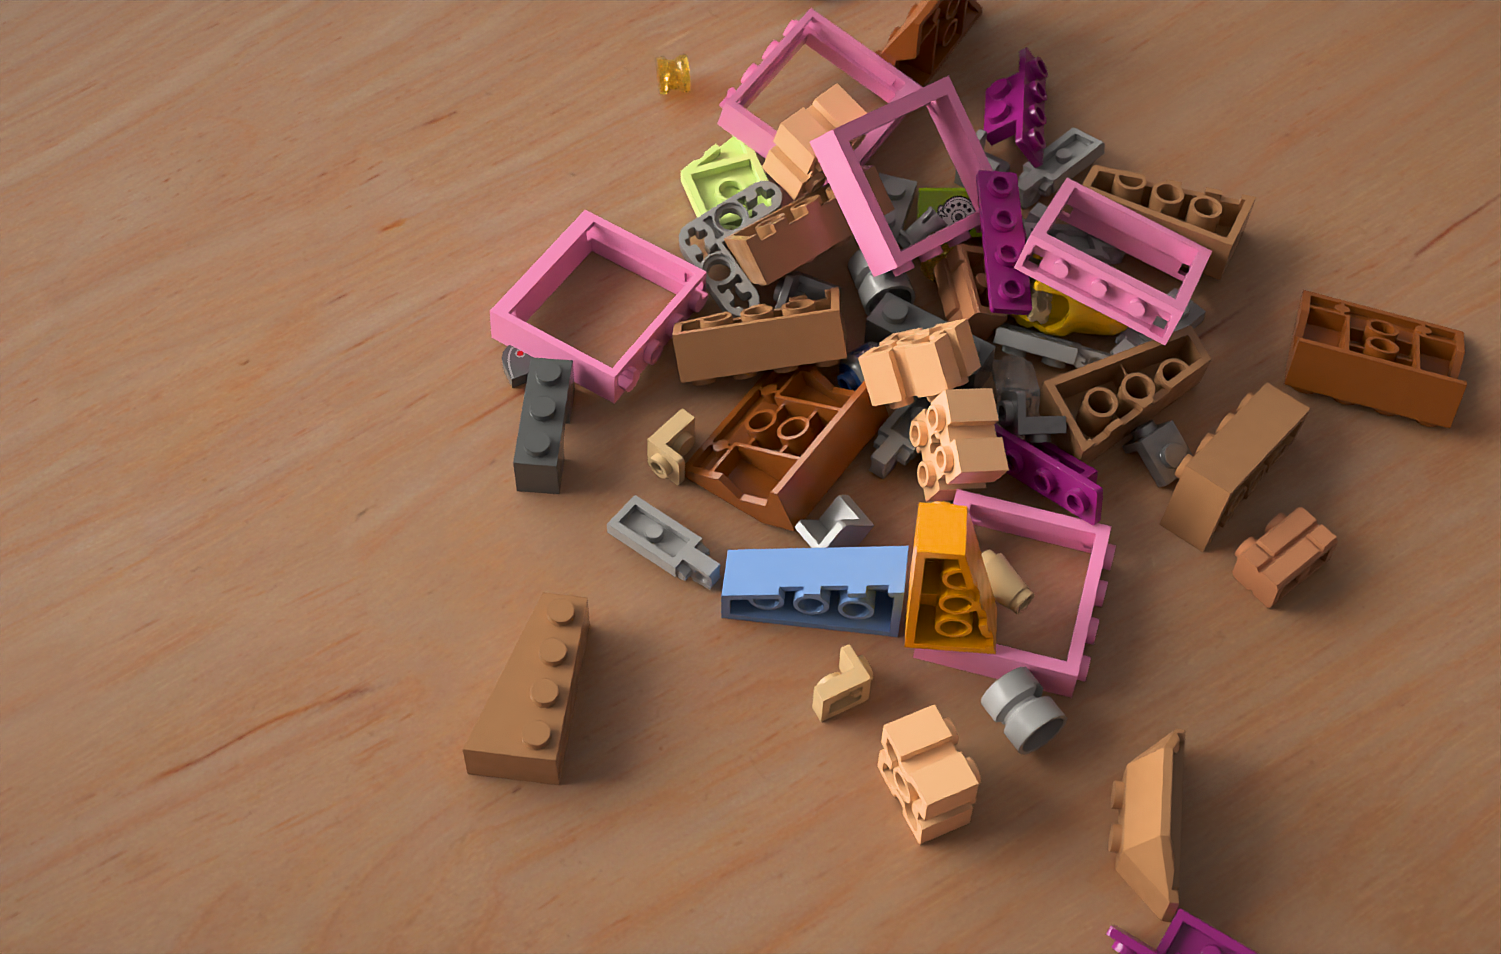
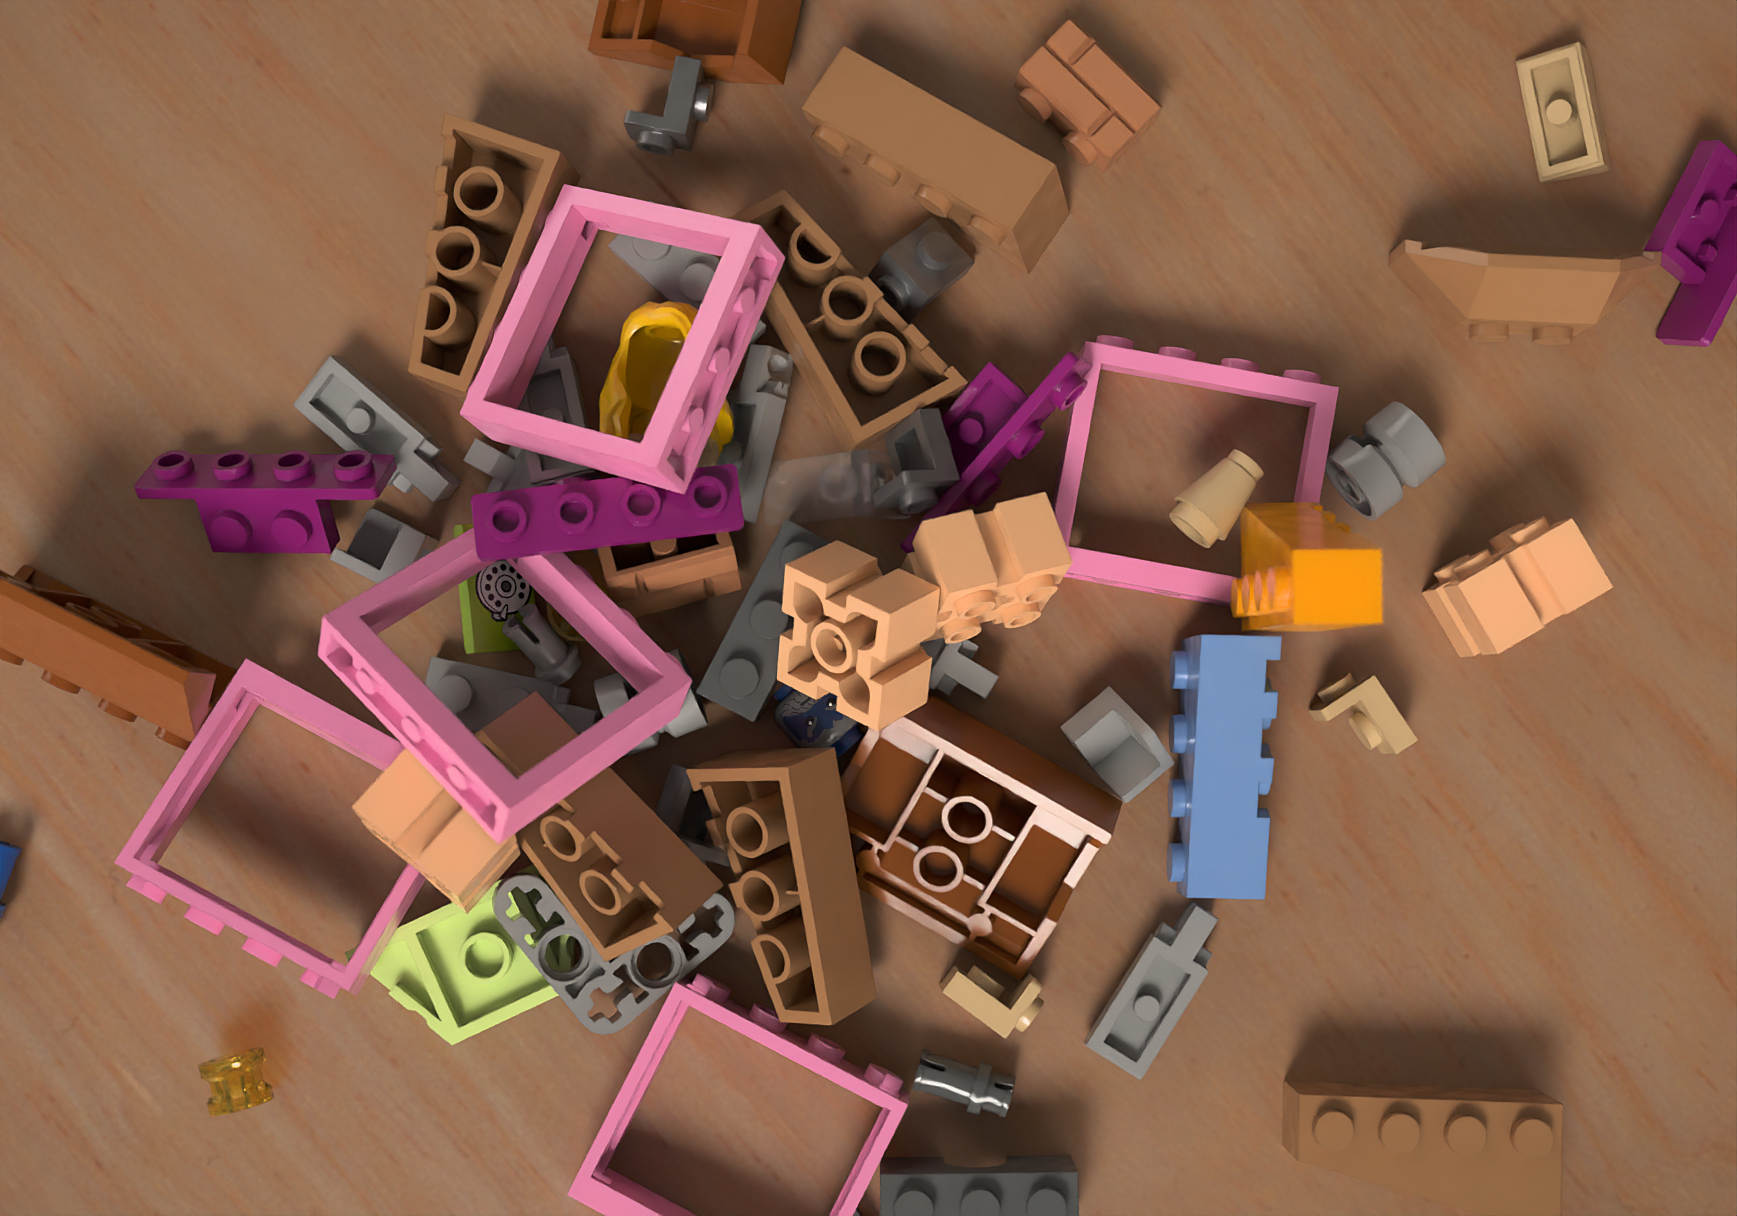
camera: 95 degrees left, 30 degrees up
(616, 433) = (964, 1083): none -> dark grey pin
(1265, 329) = (686, 103): none -> flat silver bracket
(1287, 879) = (1564, 114): none -> tan slope

